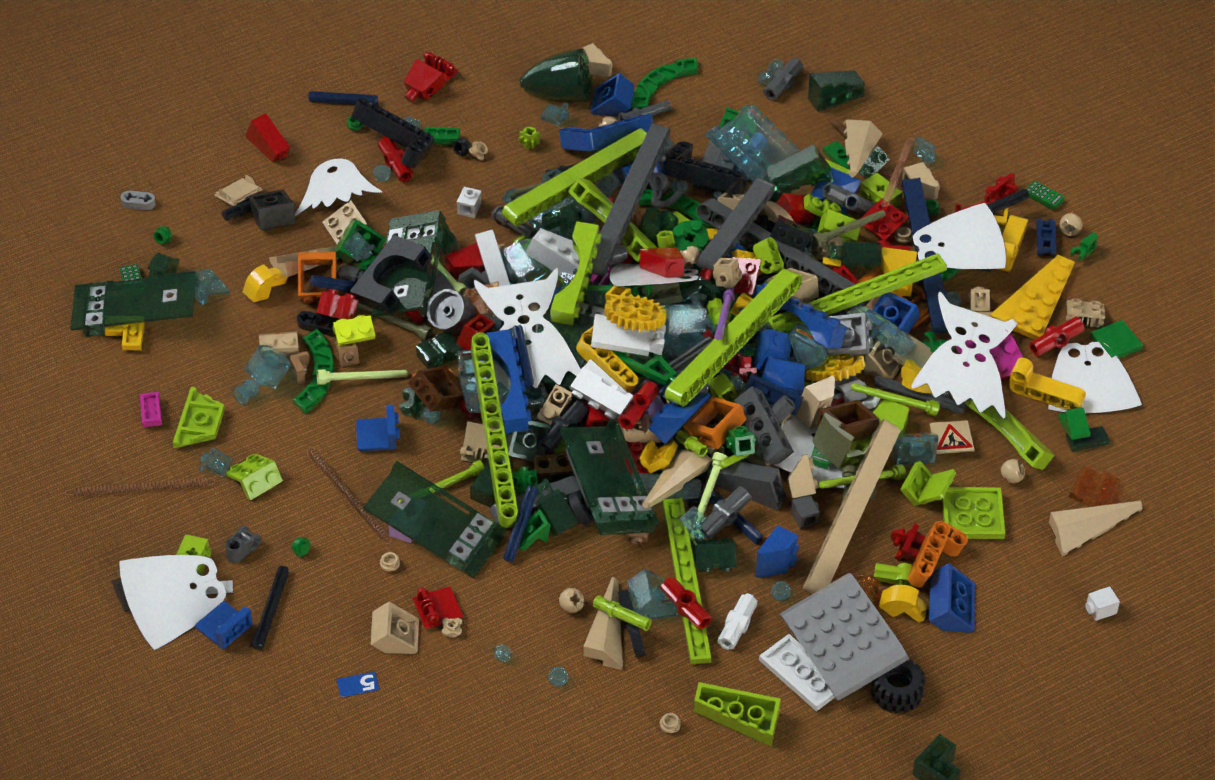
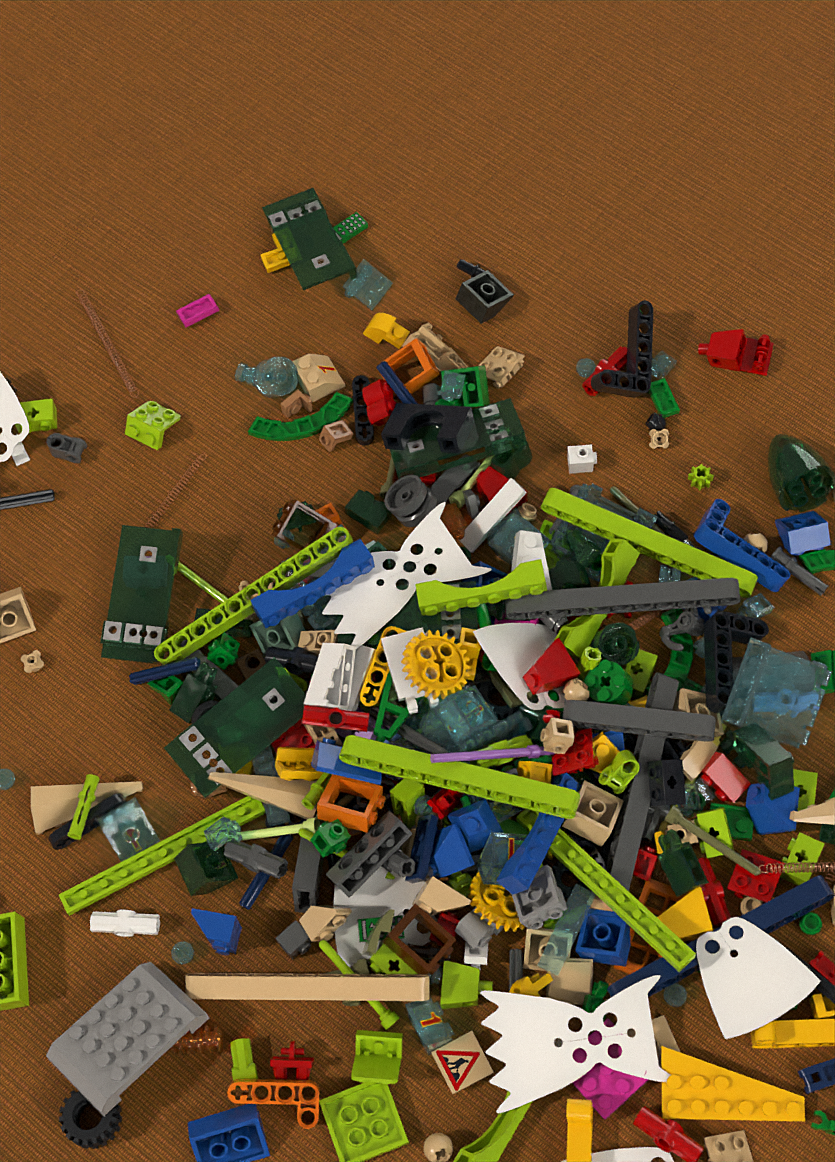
camera: 75 degrees right, 15 degrees up
(138, 200) = (452, 188): light grey beam -> none
(162, 265) = (366, 242): clear green brick -> none
(163, 235) = (412, 227): green plate -> none
(198, 420) = (201, 352): lime wing -> none
(215, 462) = (153, 387): clear light blue bracket -> none
(238, 191) = (496, 260): tan piece -> none
(267, 138) = (573, 254): red slope -> none
(301, 546) = (81, 497): green plate -> none
(325, 376) = (288, 428): yellowish green piece -> none
(339, 184) = (544, 334): white piece -> none
(341, 98) = (670, 293): dark blue axle -> none
(354, 330) = (351, 428): neon yellow bracket -> none
(378, 432) = (243, 502): blue bracket -> none
(389, 561) = (91, 577): tan plate -> none
(436, 606) = (53, 640): red hinge -> none
(478, 324) = (392, 532): red brick -> none
(502, 653) = (13, 718): clear light blue plate -> none
(524, 360) = (355, 584): dark blue axle -> none
(555, 114) = (751, 488): clear light blue bracket -> none
(571, 606) = (98, 761): tan piece -> none
(686, 603) = (109, 874): red piece -> none
(797, 671) = (85, 991): white plate -> none
(815, 206) = (733, 800): lime slope -> none
(840, 196) = (761, 826): dark grey piece -> none
(903, 599) = (203, 1087): yellow brick -> none
(930, 407) = (479, 967): lime piece -> none
(979, 299) = (687, 1026): tan bracket -> none

